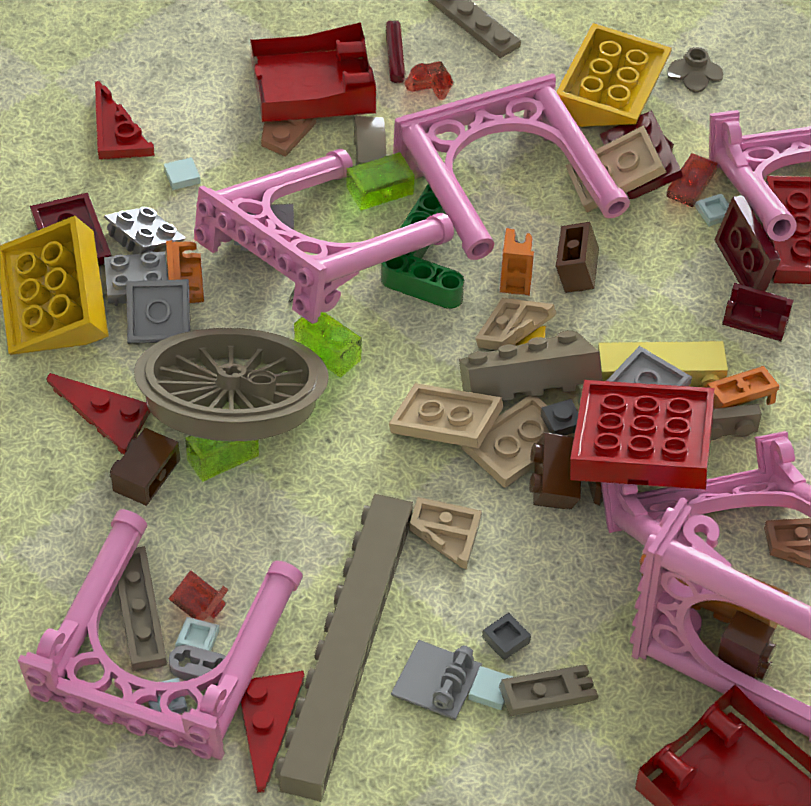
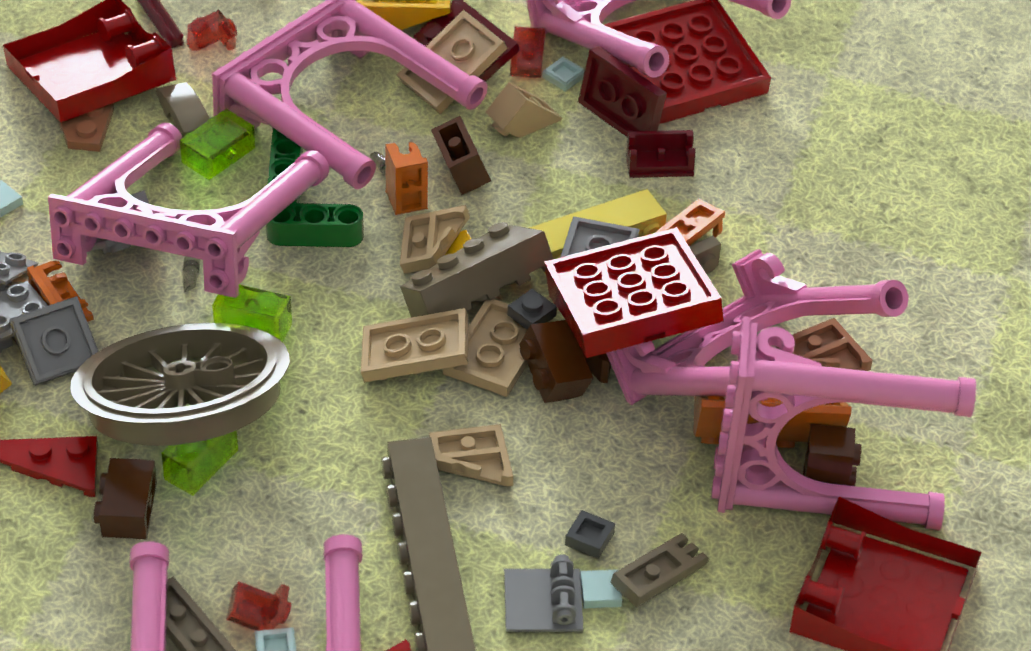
camera: 25 degrees left, 5 degrees down
(654, 234) = (520, 112): none -> tan slope

